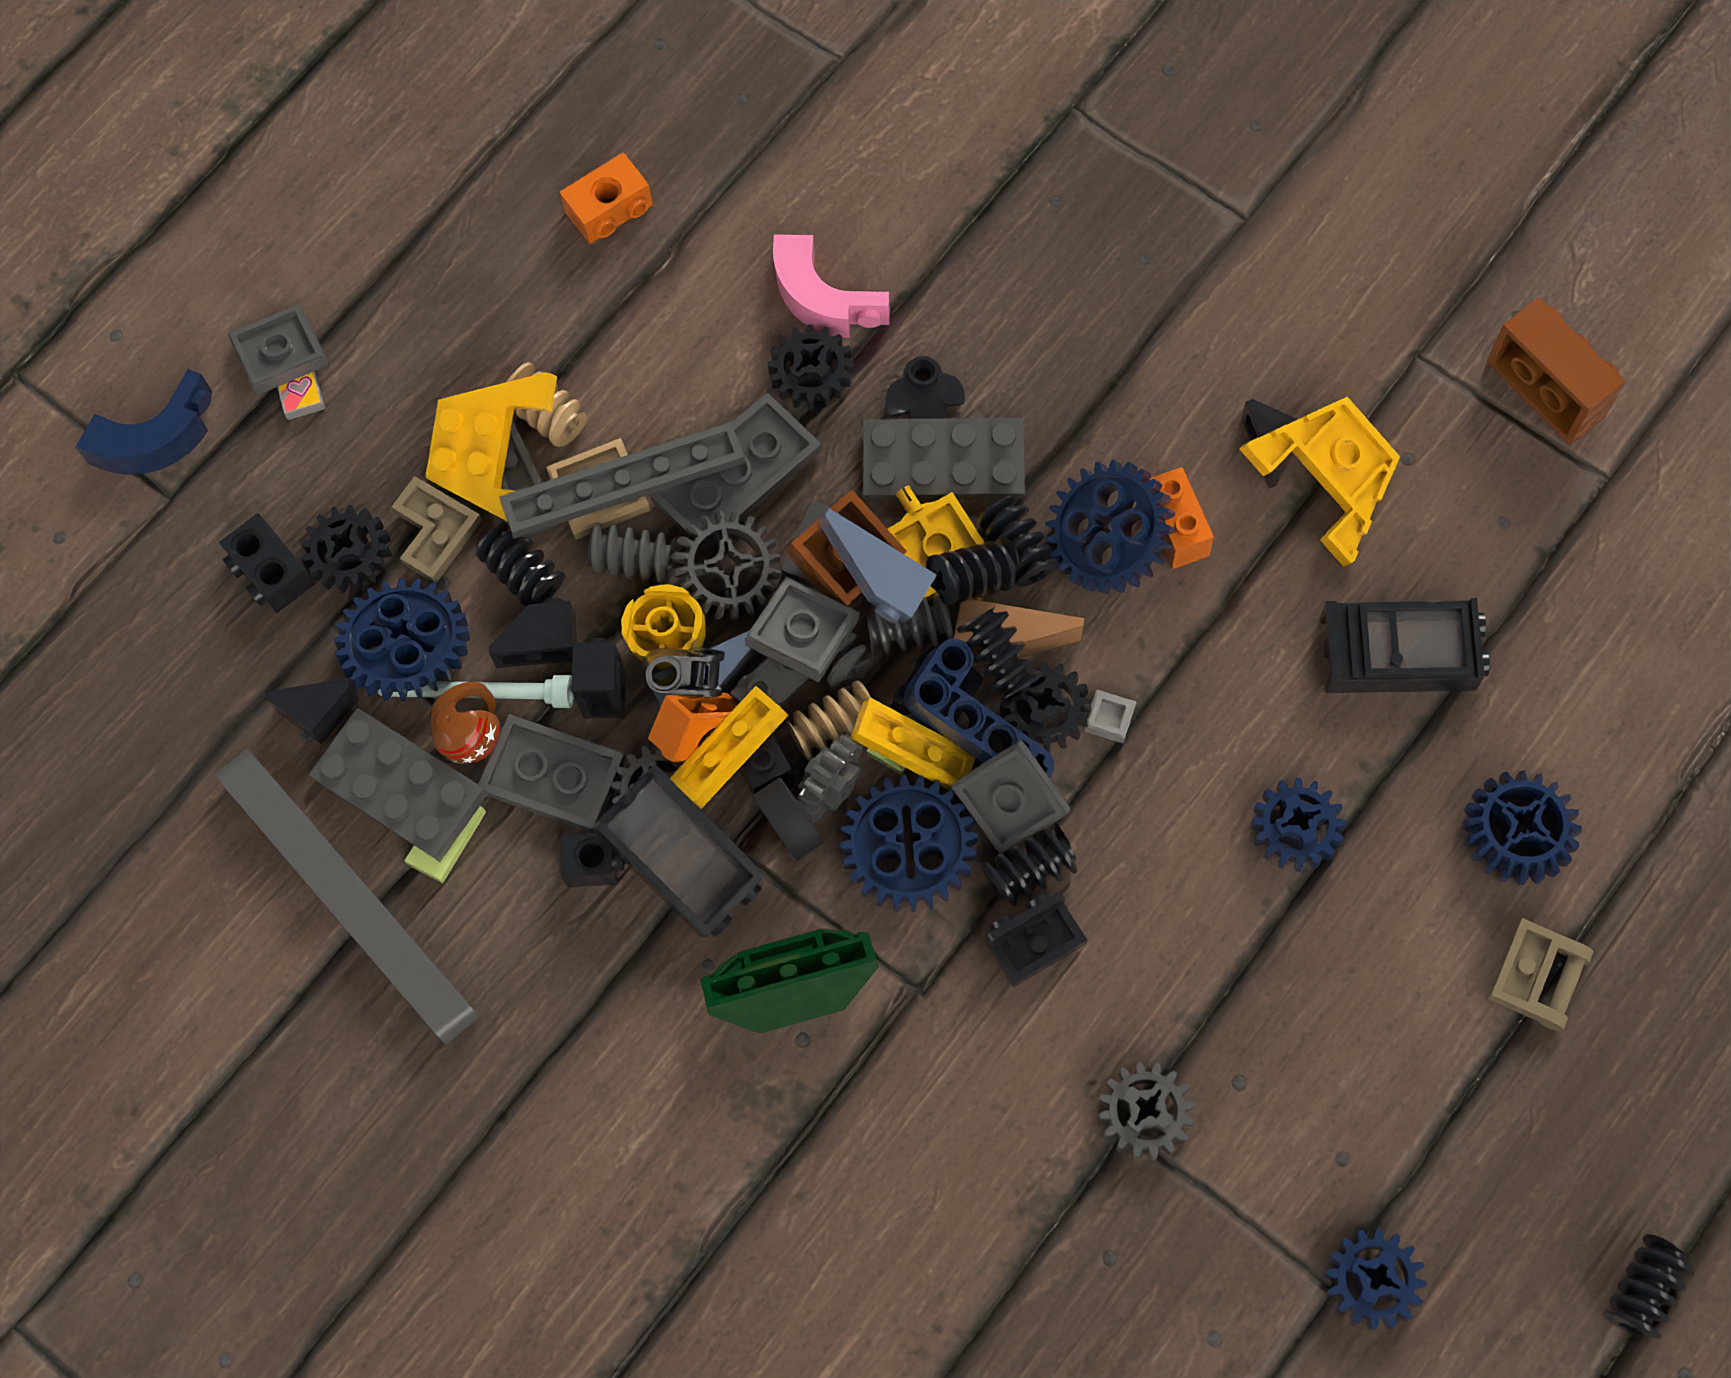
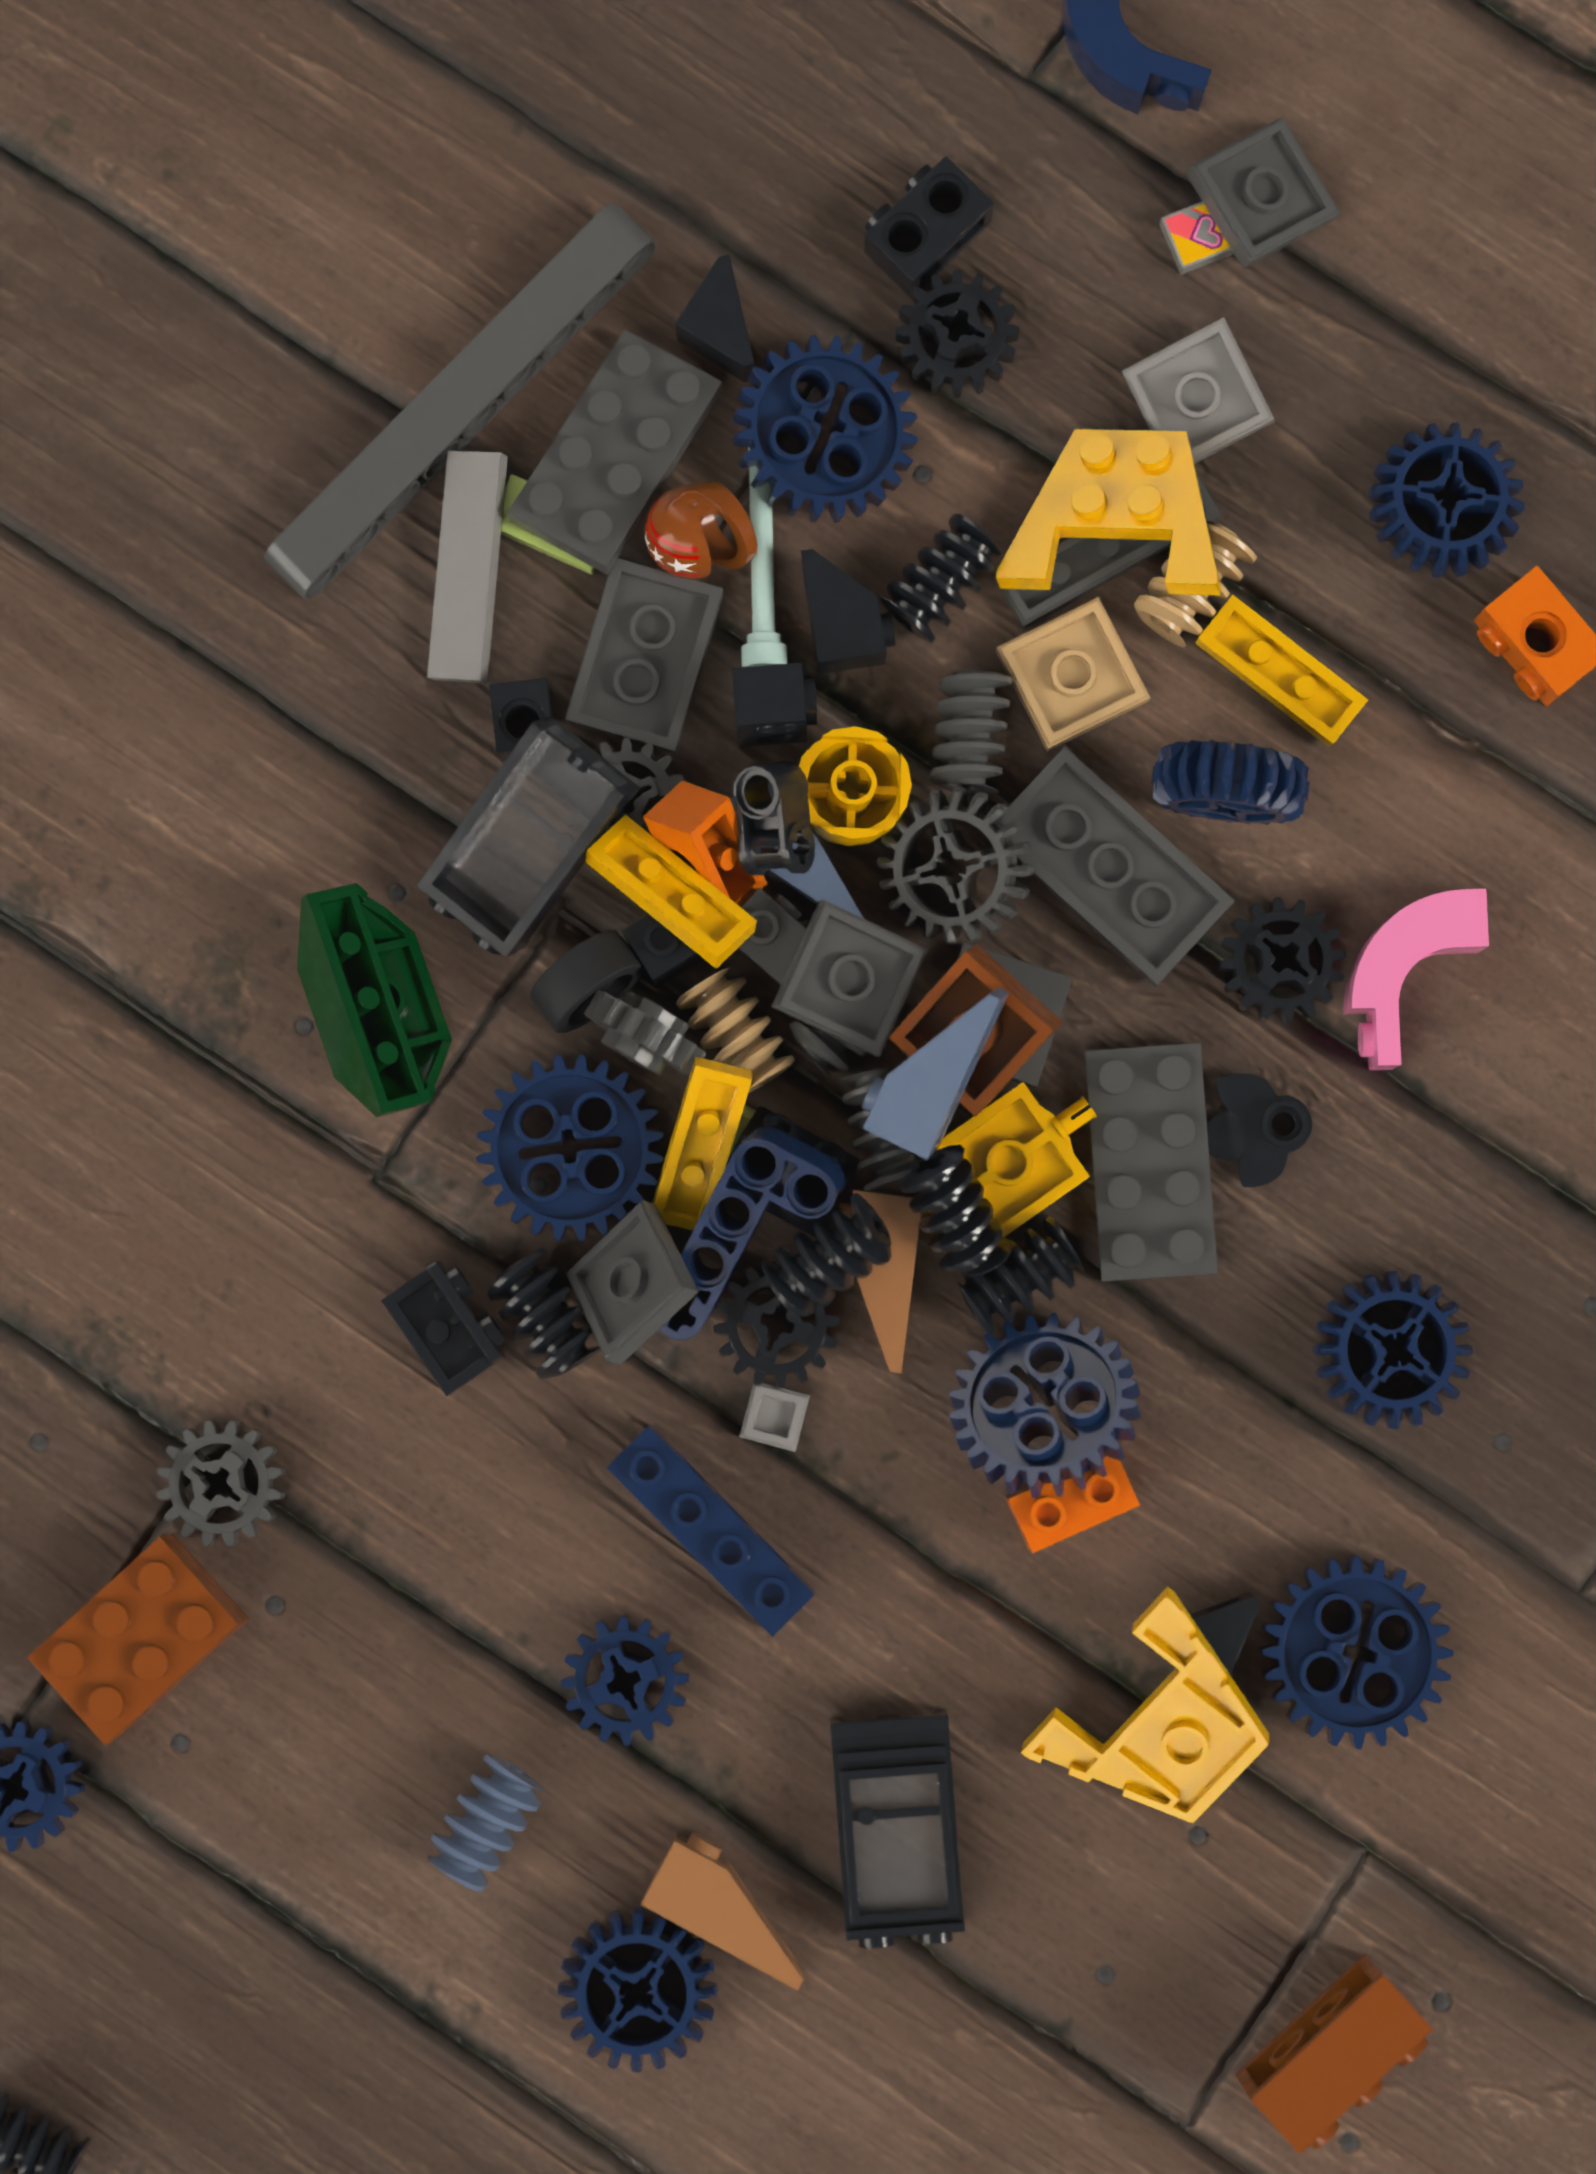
camera: 85 degrees right, 15 degrees up
(408, 395) = (1200, 389): none -> light grey plate
(443, 526) = (1000, 466): dark tan plate -> none
(469, 895) = (467, 566): none -> light grey tile
(497, 233) = (1492, 500): none -> dark blue gear
(612, 356) = (1281, 671): none -> yellow plate
(622, 480) = (1070, 706): dark grey plate -> none
(685, 384) = (1230, 782): none -> dark blue gear
(1081, 333) = (1410, 1327): none -> dark blue gear
(1190, 757) = (711, 1530): none -> dark blue brick
(1263, 1177) = (138, 1638): none -> dark orange brick
(1274, 379) = (1409, 1664): none -> dark blue gear
(1401, 927) = (486, 1823): none -> sand blue piece
(1457, 770) = (711, 1901): none -> medium nougat slope
(1527, 968) = (440, 1993): dark tan plate -> none

